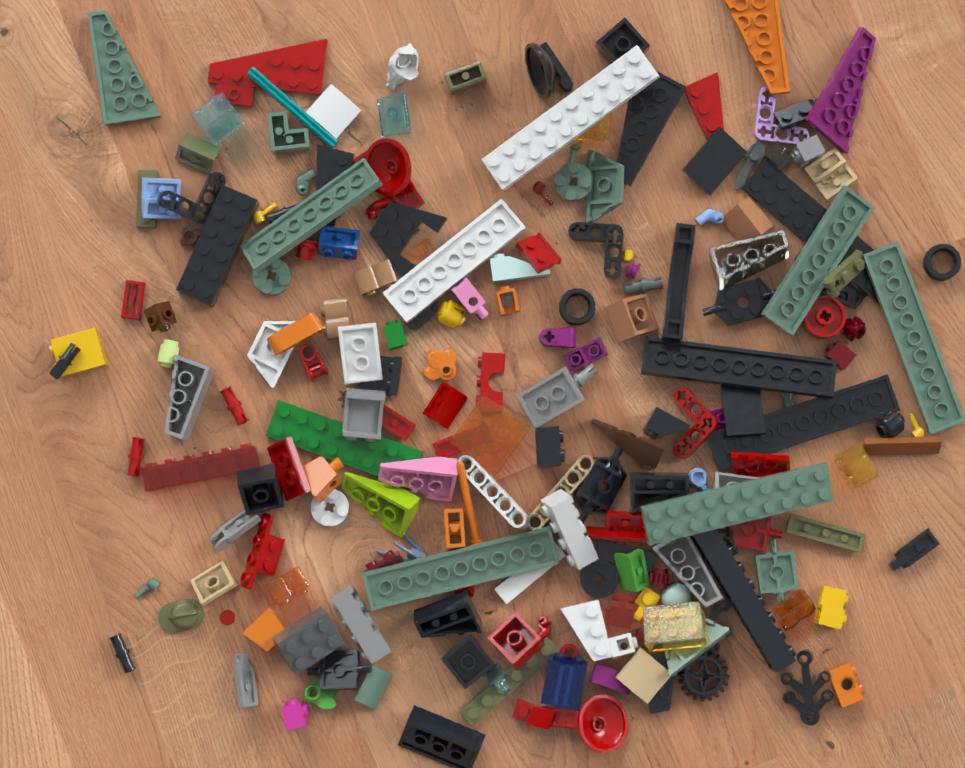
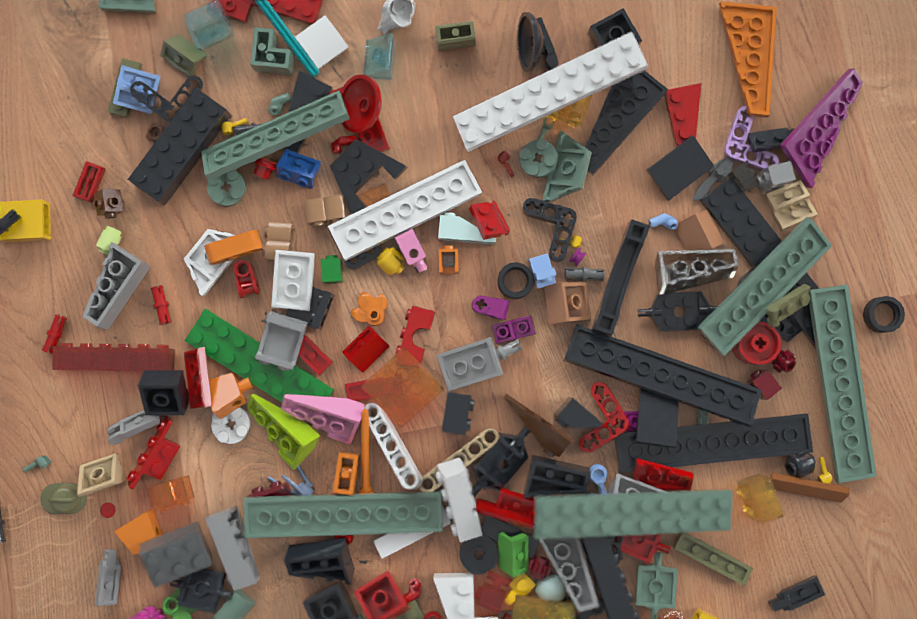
camera: 20 degrees right, 0 degrees up
(601, 291) = (542, 271): none -> light blue brick

